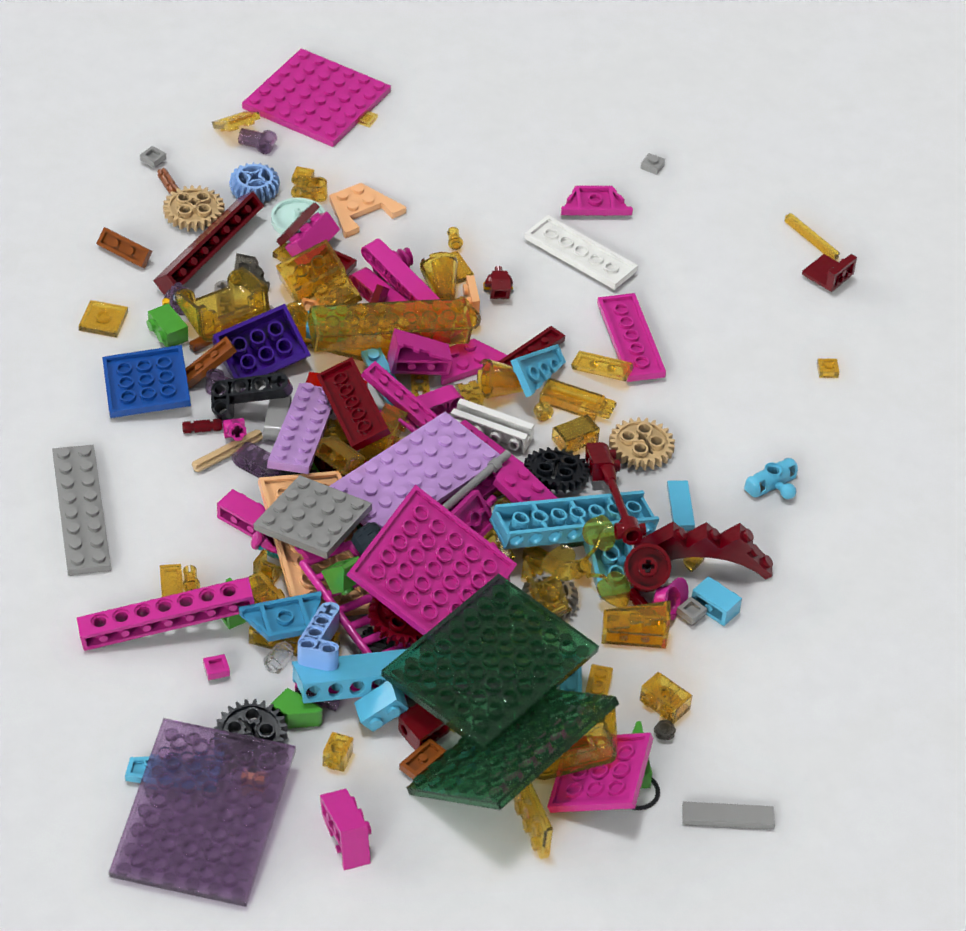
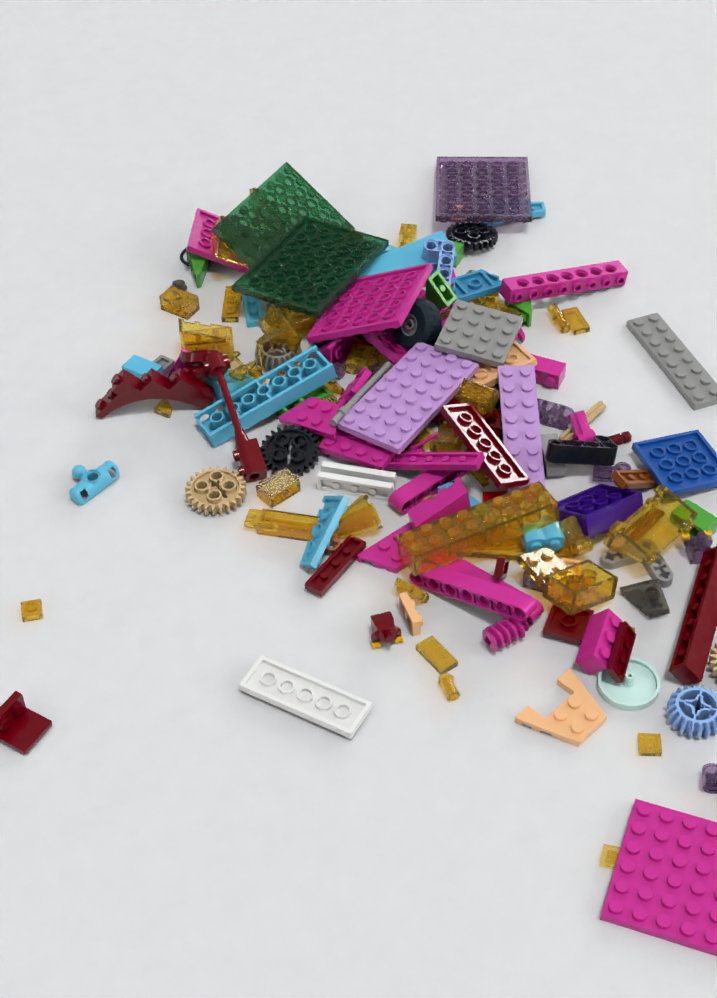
camera: 175 degrees right, 0 degrees up
(216, 667) = (513, 270): dark pink plate -> none
(311, 188) = (631, 718): clear yellow piece -> none
(348, 827) = (388, 195): dark pink wedge -> none
(440, 274) = (448, 621): clear yellow cone -> none
(471, 392) = (384, 506): clear yellow plate -> none
(543, 411) = (312, 505): clear yellow bush -> none
(595, 201) = (298, 773): dark pink wing -> none
(602, 366) = (262, 558): clear yellow tile -> none
(631, 336) = (238, 602): dark pink plate -> none
(652, 163) = (236, 857): light grey plate -> none
(681, 504) = (176, 449): medium azure tile -> none
(728, 815) = (131, 249): light grey tile -> none
(811, 236) = (37, 779): clear yellow axle -> none

